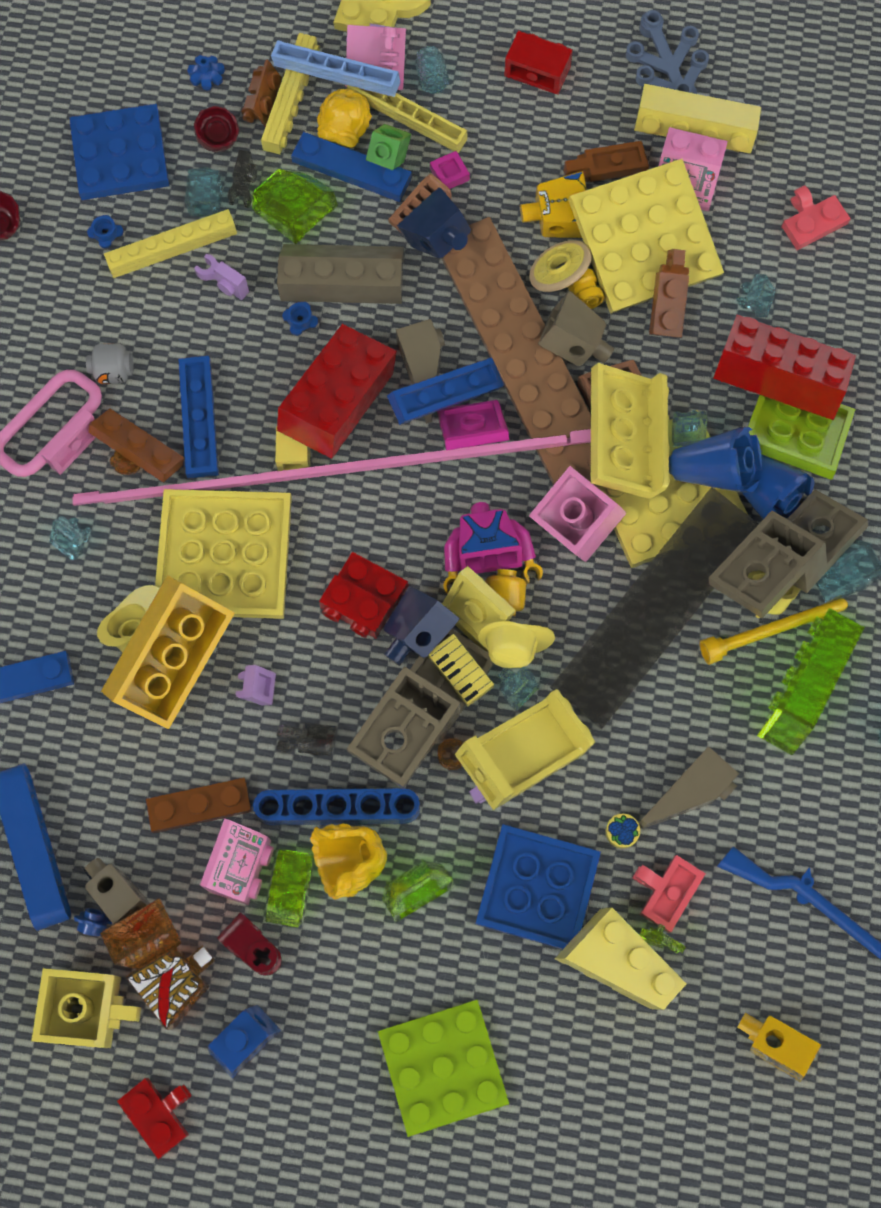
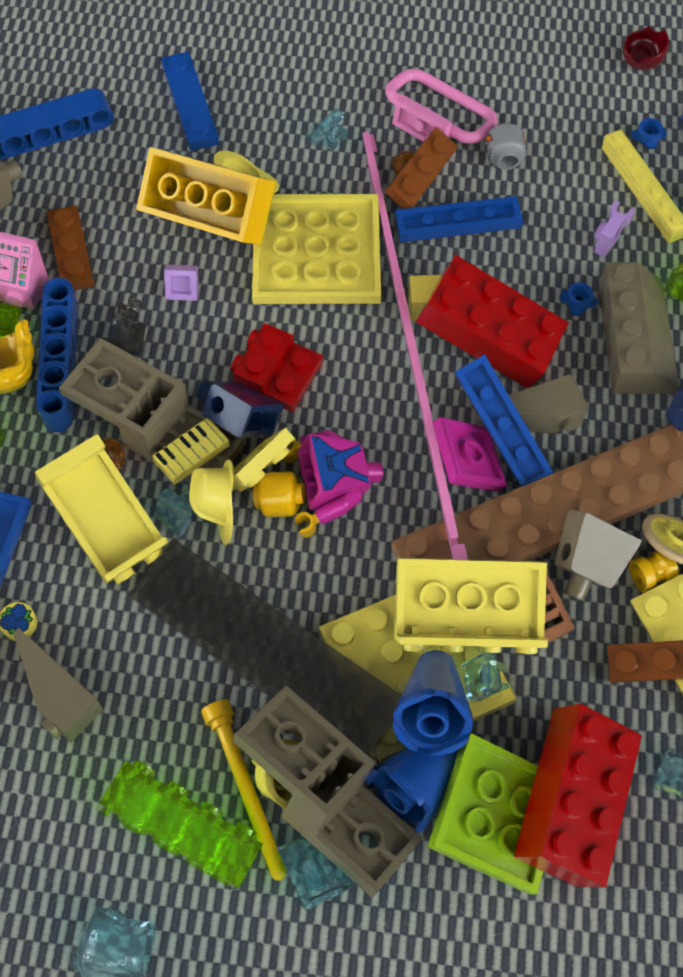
camera: 85 degrees right, 10 degrees down
(577, 514) = (364, 559): bright pink slope -> none

